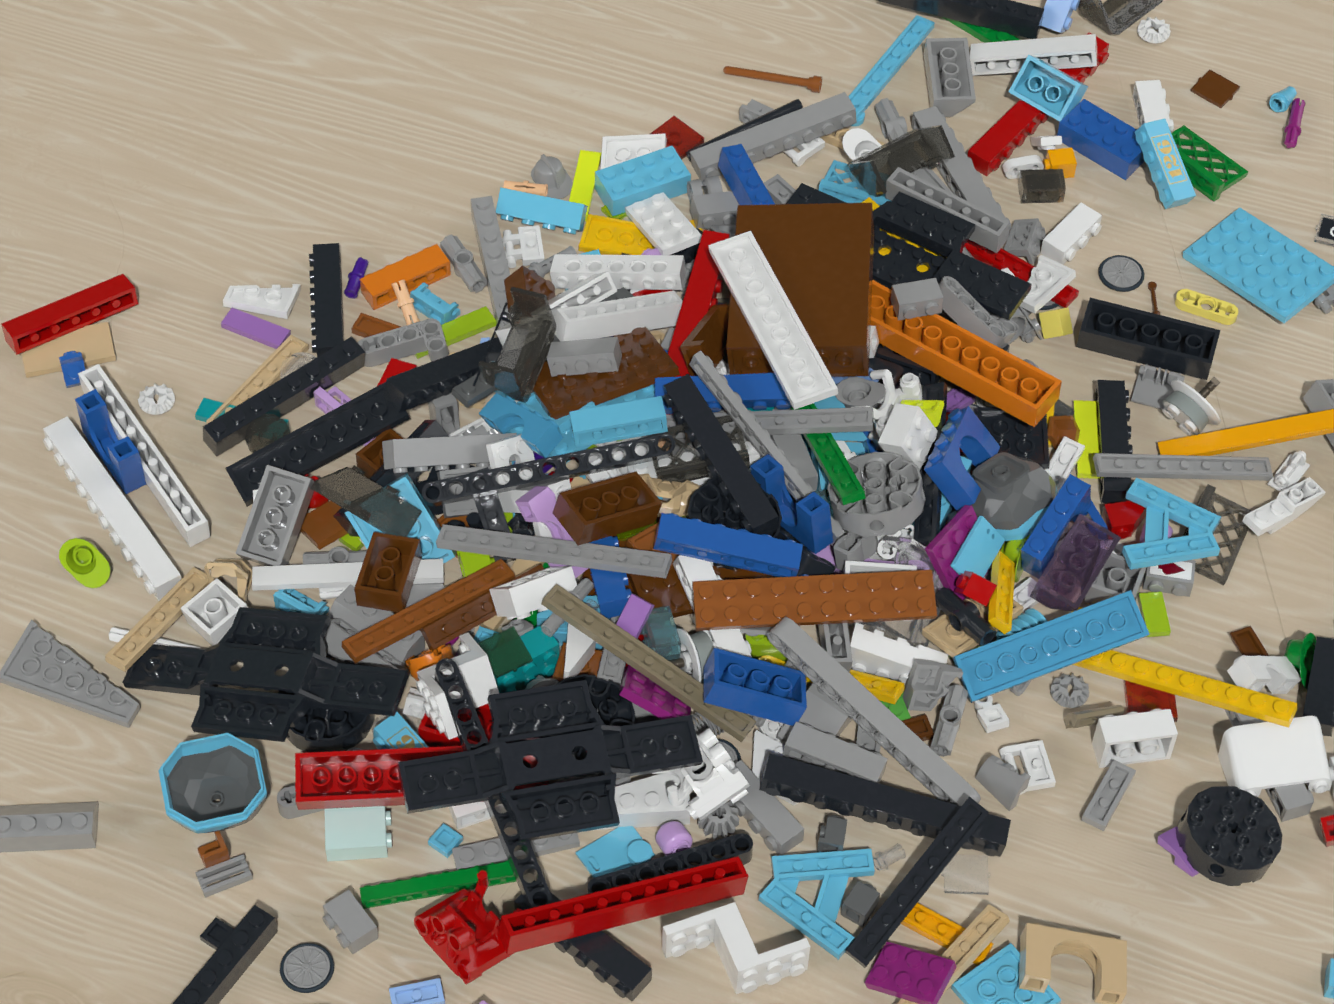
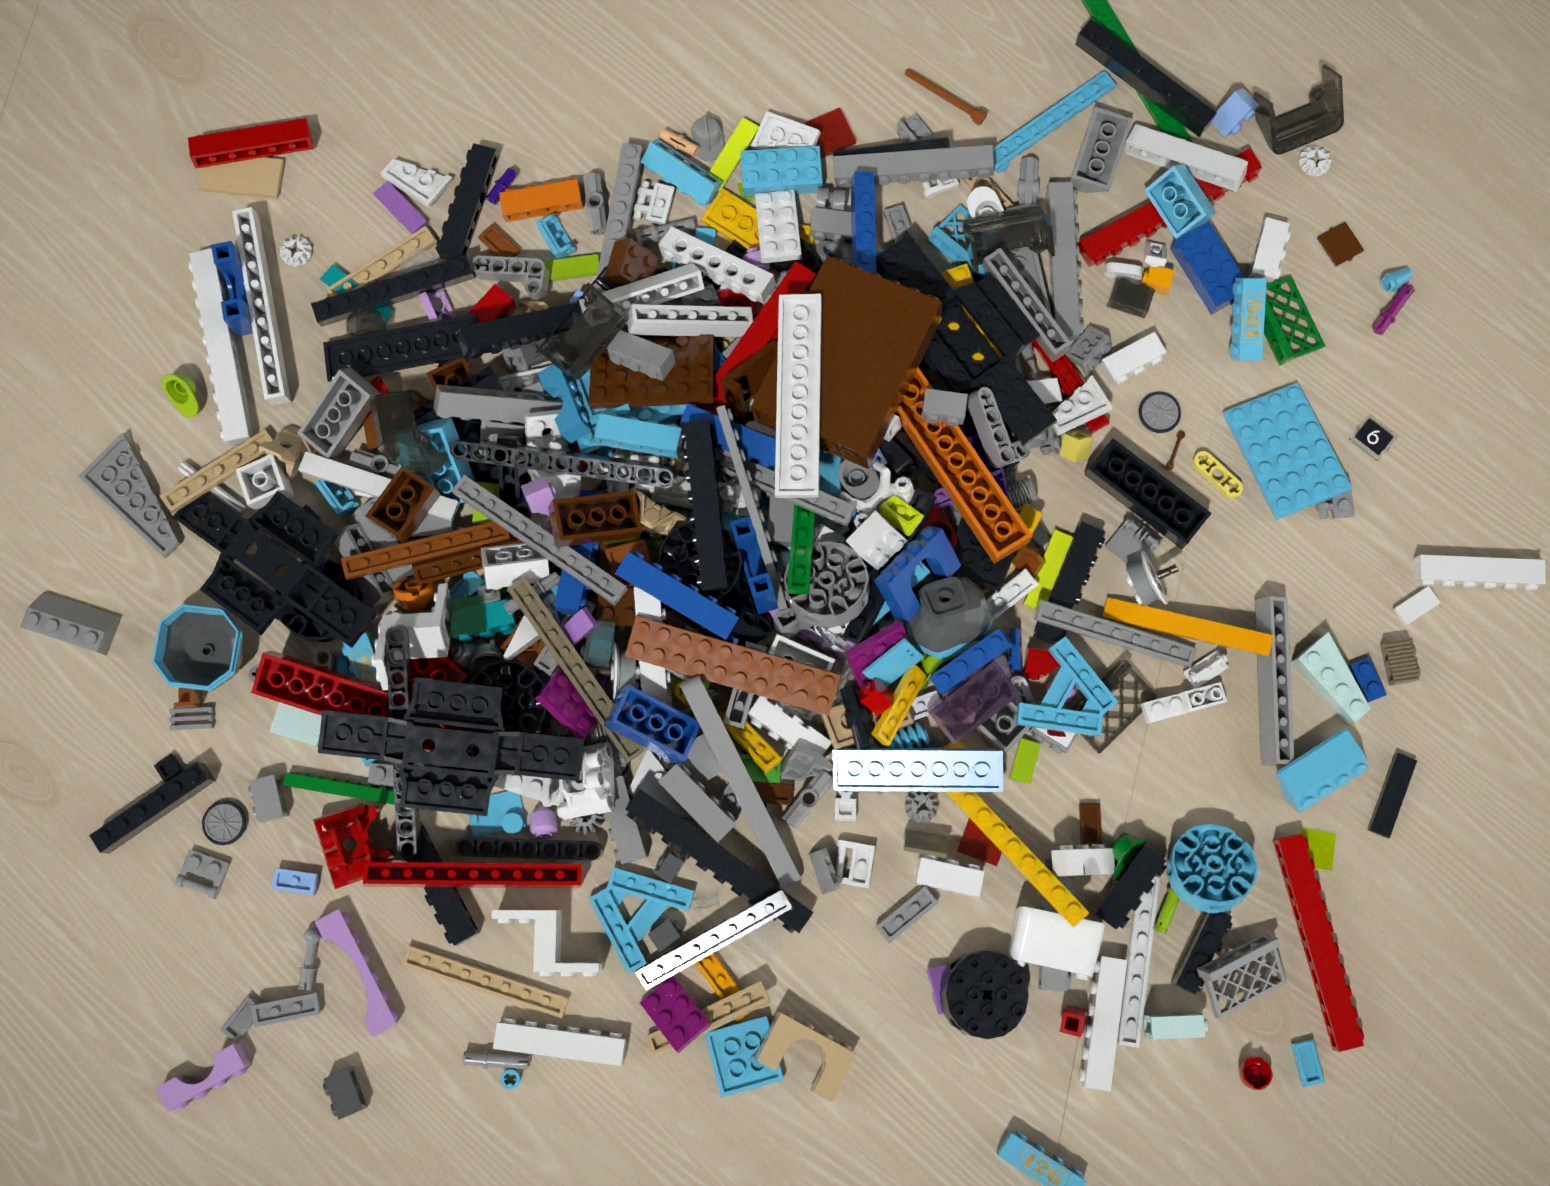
camera: 25 degrees right, 25 degrees up
(71, 365) = (236, 198): blue bracket -> none
(405, 302) = (529, 229): light nougat pin -> none

